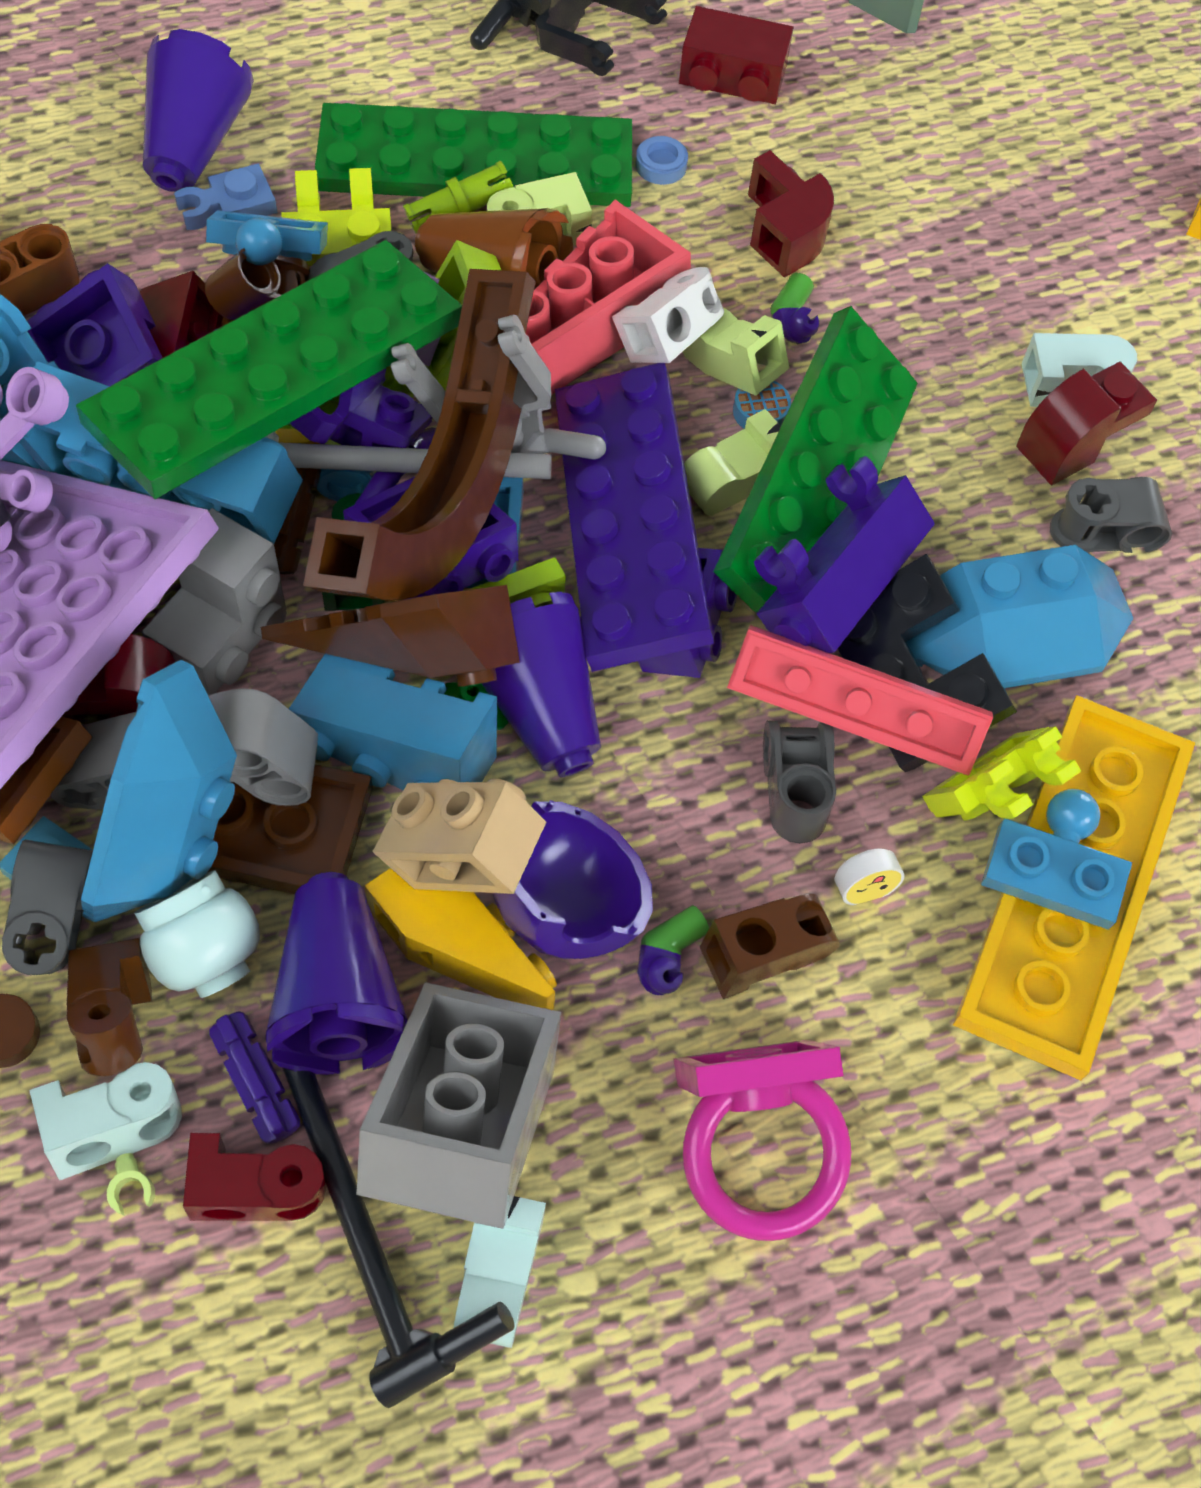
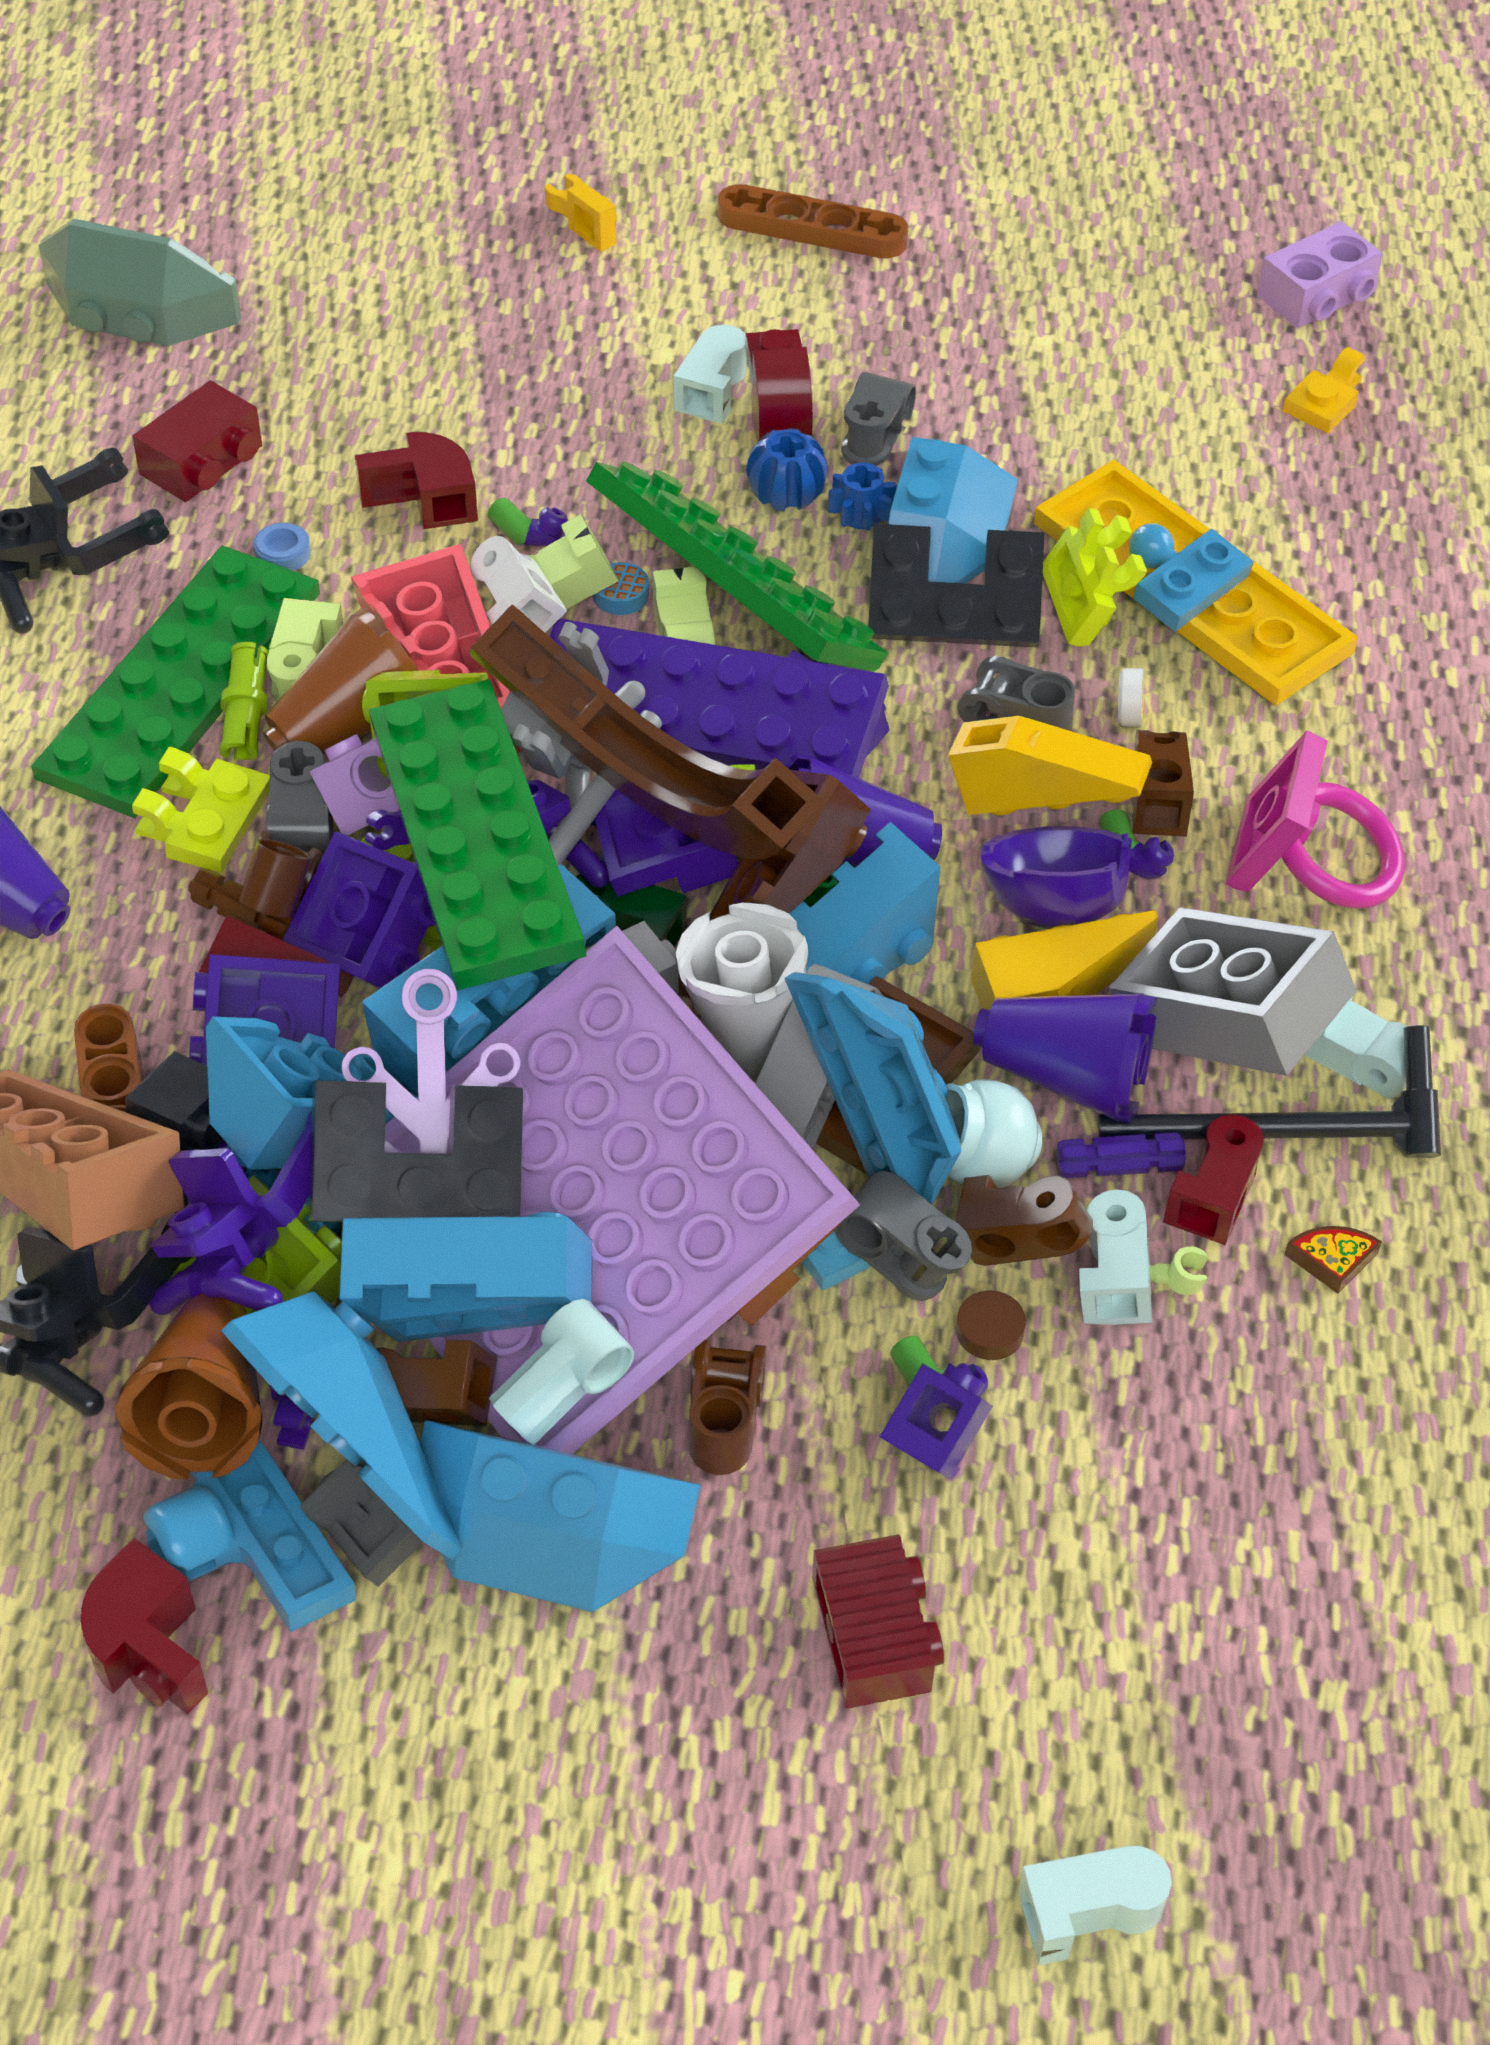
camera: 60 degrees left, 10 degrees down
(208, 1335) = (1333, 1253): none -> tile
(232, 191) = (102, 878): medium blue plate -> none
(239, 633) = (737, 977): none -> white cone
(266, 236) = (231, 829): dark azure plate -> none
(460, 836) = (1013, 888): tan brick -> none
(696, 821) = (1032, 765): none -> yellow slope
(844, 572) = (851, 581): dark purple brick -> none
(860, 700) = (984, 624): coral tile -> none
(984, 469) = (786, 469): none -> blue piece
(991, 535) = (861, 496): none -> blue gear

